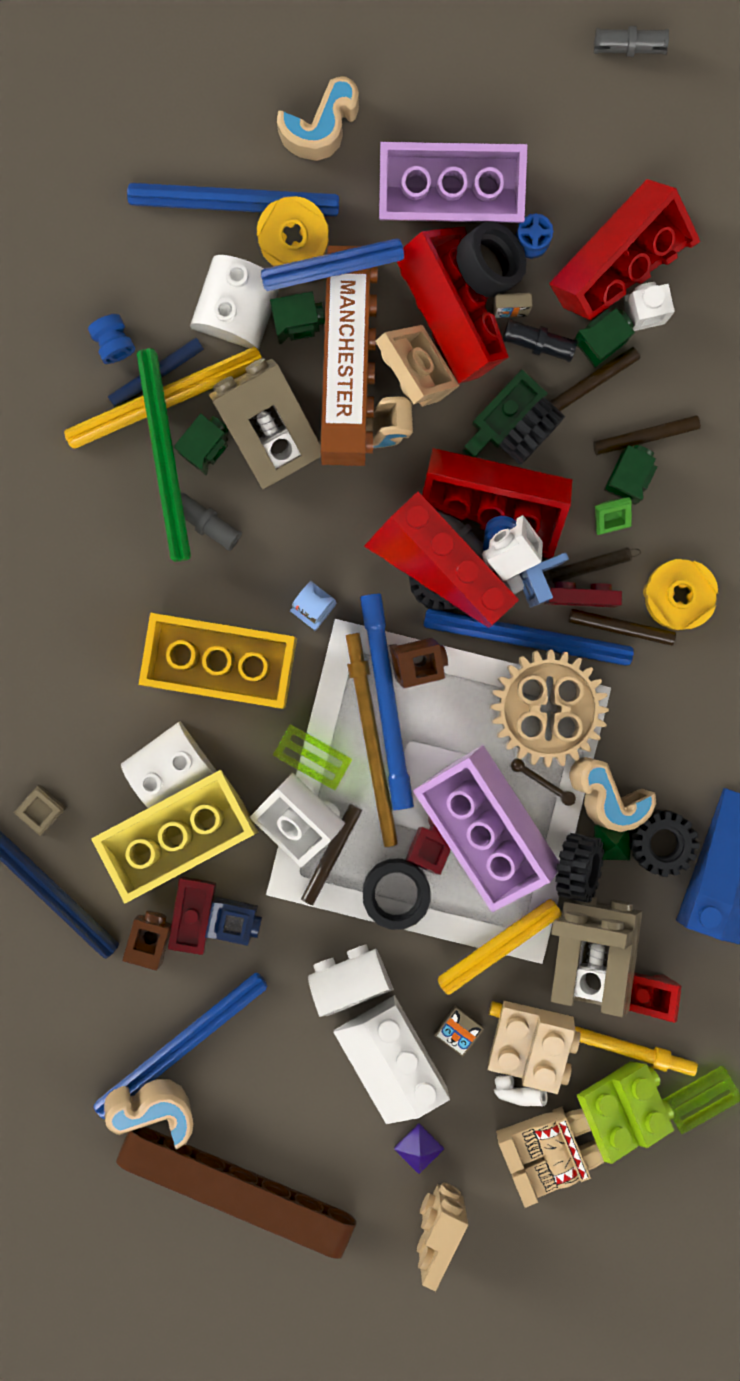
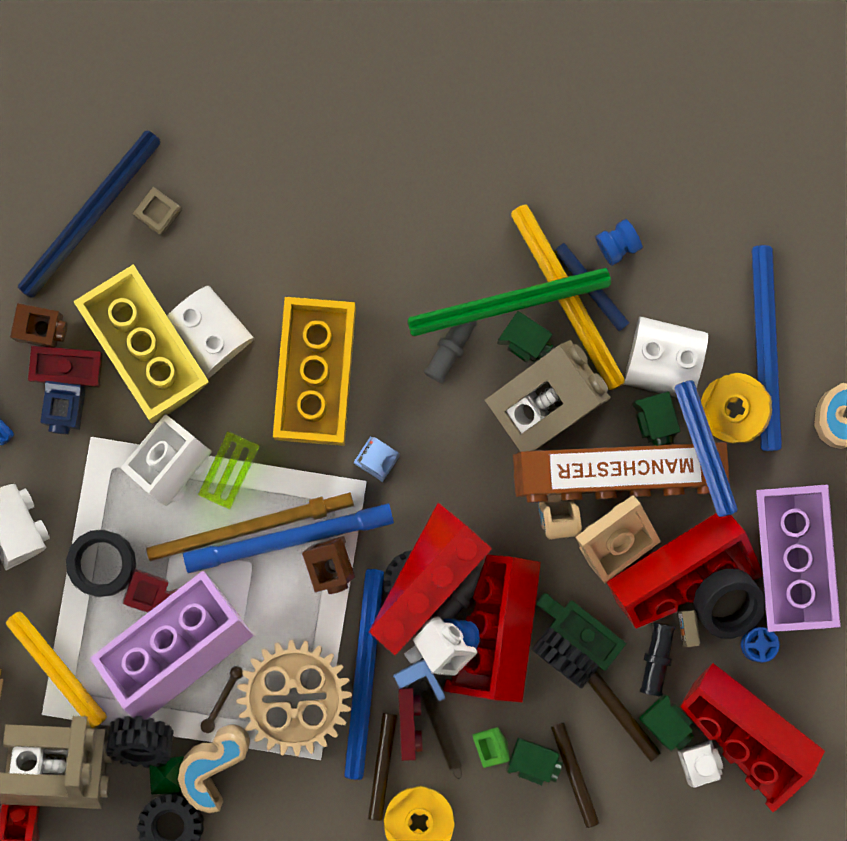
camera: 85 degrees right, 5 degrees down
(331, 855) = (134, 496): dark brown bar -> none

